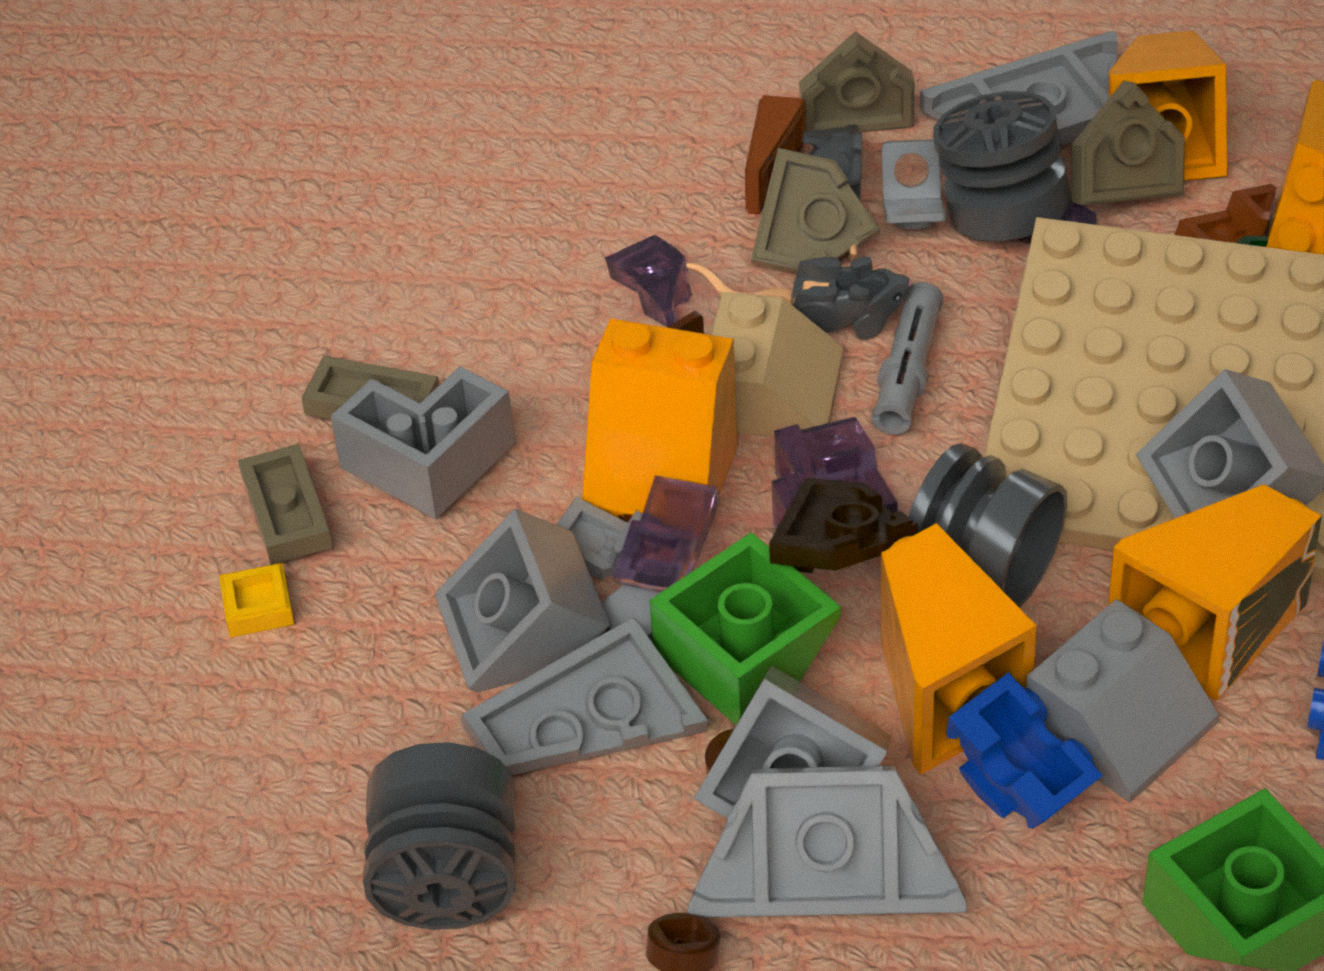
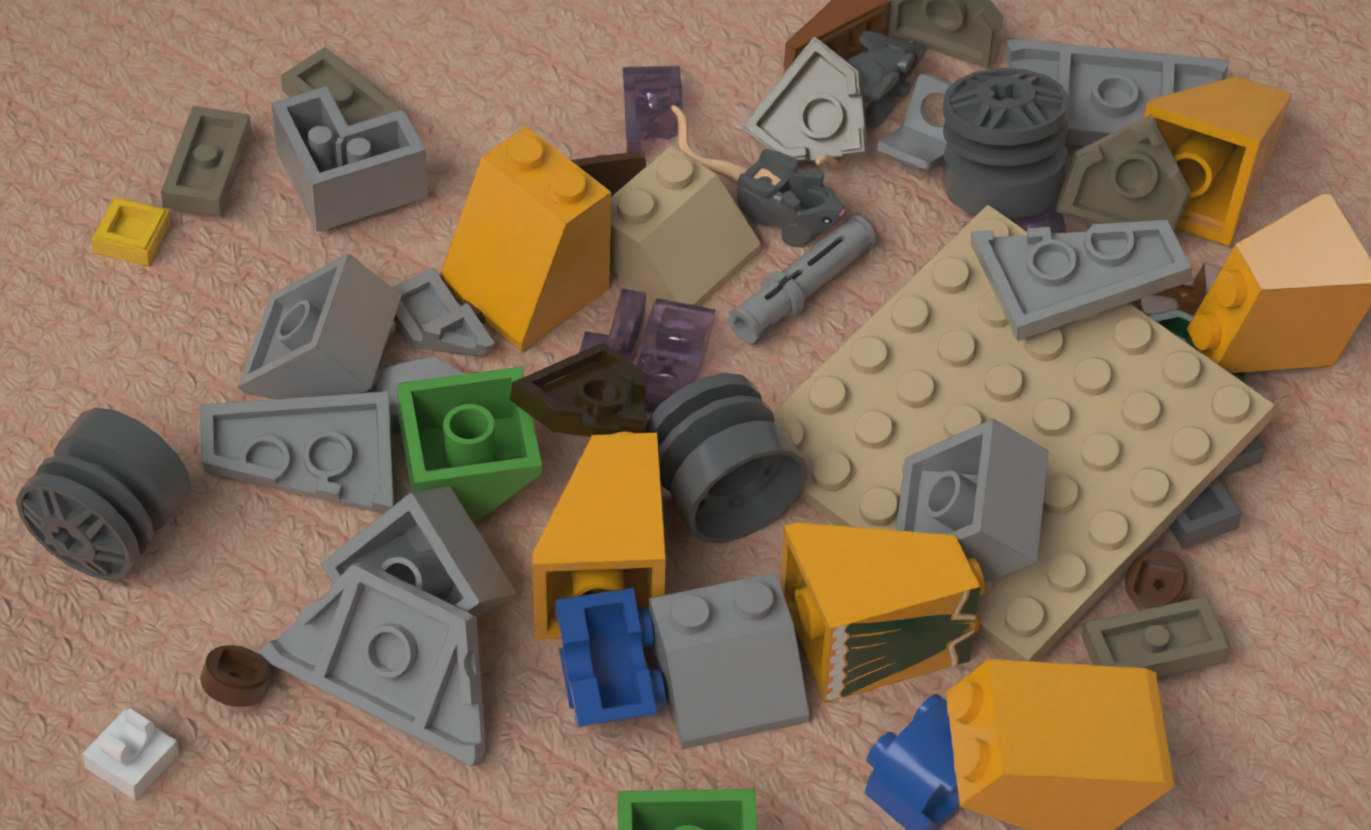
camera: 25 degrees right, 5 degrees up
(668, 536) = (471, 338): slope -> none
(1170, 234) = (1073, 275): none -> light grey wing

